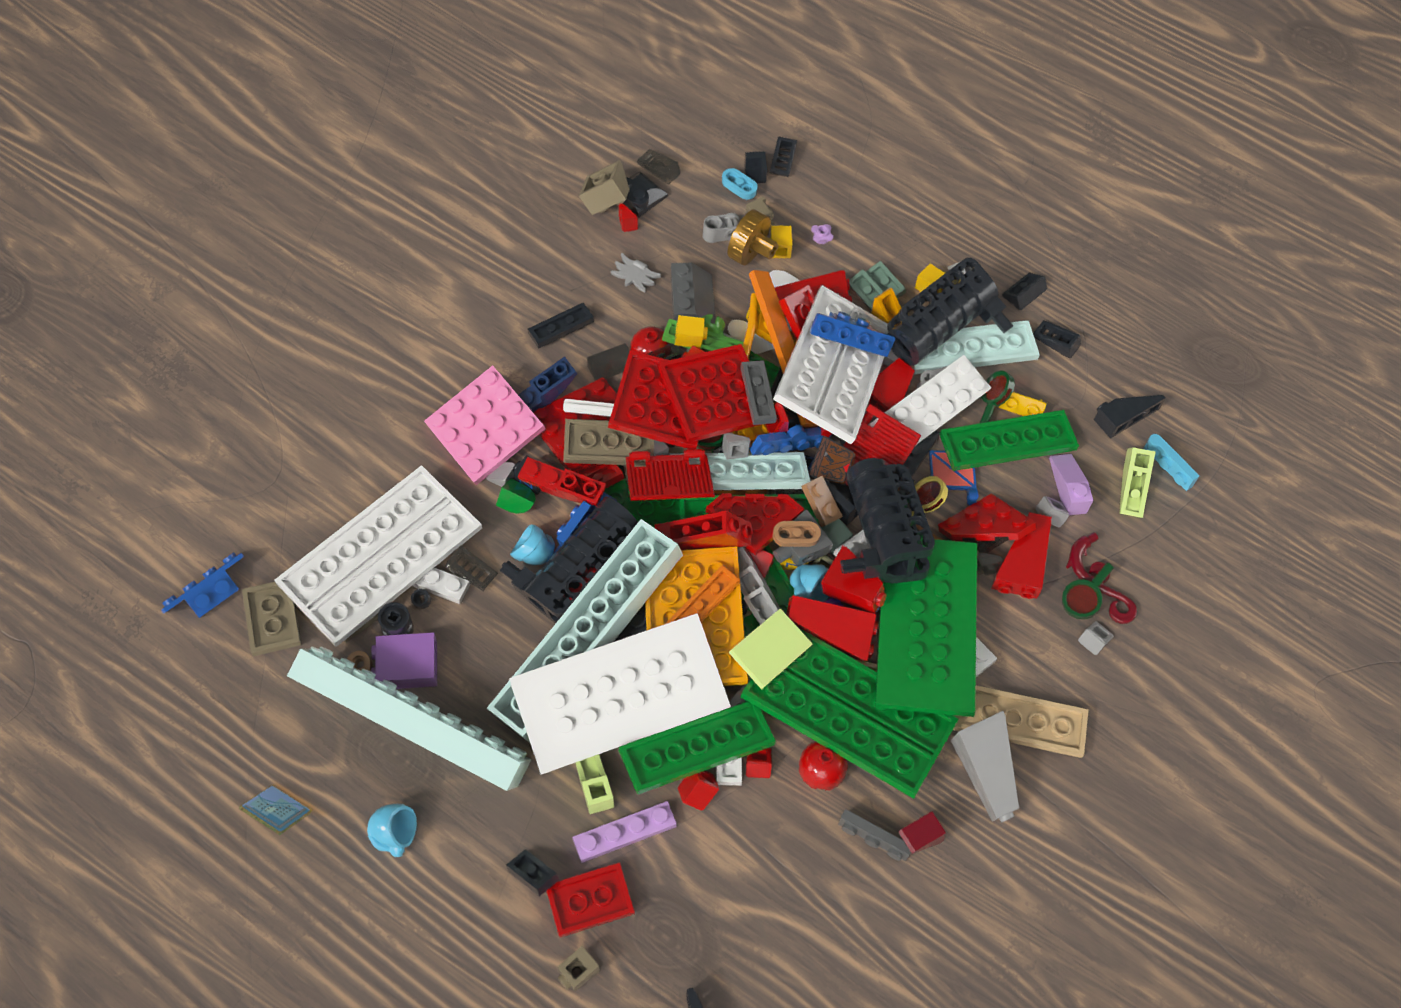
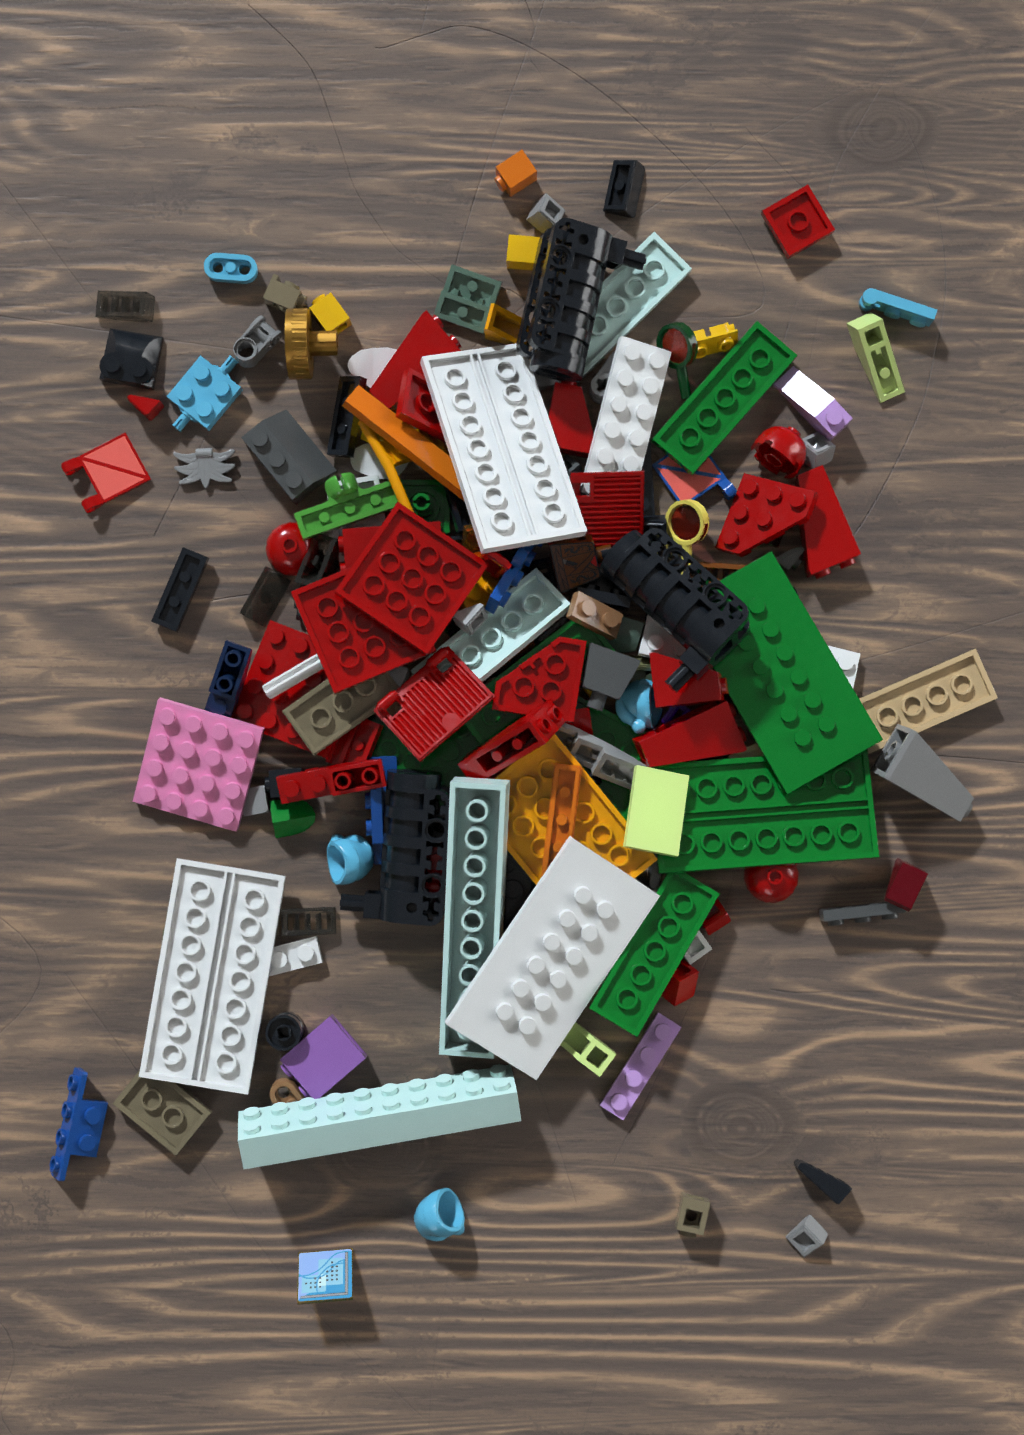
camera: 30 degrees left, 25 degrees up
(417, 600) = (283, 990): black hinge -> none
(532, 872) = (591, 1164): black plate -> none
(574, 239) = (112, 469): none -> flag
(590, 900) = (656, 1148): red plate -> none
(605, 188) = (96, 388): dark tan slope -> none
(668, 235) = (204, 393): none -> medium azure plate
(690, 331) = (330, 517): yellow brick -> none
(738, 305) = (344, 424): none -> black plate
(756, 166) = (233, 233): black panel -> none
(758, 392) = (457, 551): dark grey plate -> none
(784, 143) = (245, 173): black slope -> none
(795, 532) = (602, 681): medium nougat plate -> none
(822, 233) = (372, 270): lavender plate -> none
(852, 332) = (493, 397): blue bracket -> none
(959, 239) = (515, 173): none -> orange brick
(1026, 491) = (780, 450): none -> red cylinder
(1067, 347) = (694, 220): black slope -> none
(1075, 561) = (901, 483): dark red plant -> none
(1083, 597) = (901, 528): piece -> none
(1095, 638) = (936, 561): light grey slope -> none
(1125, 412) = (817, 281): black slope -> none
(1132, 373) = (797, 221): none -> red plate

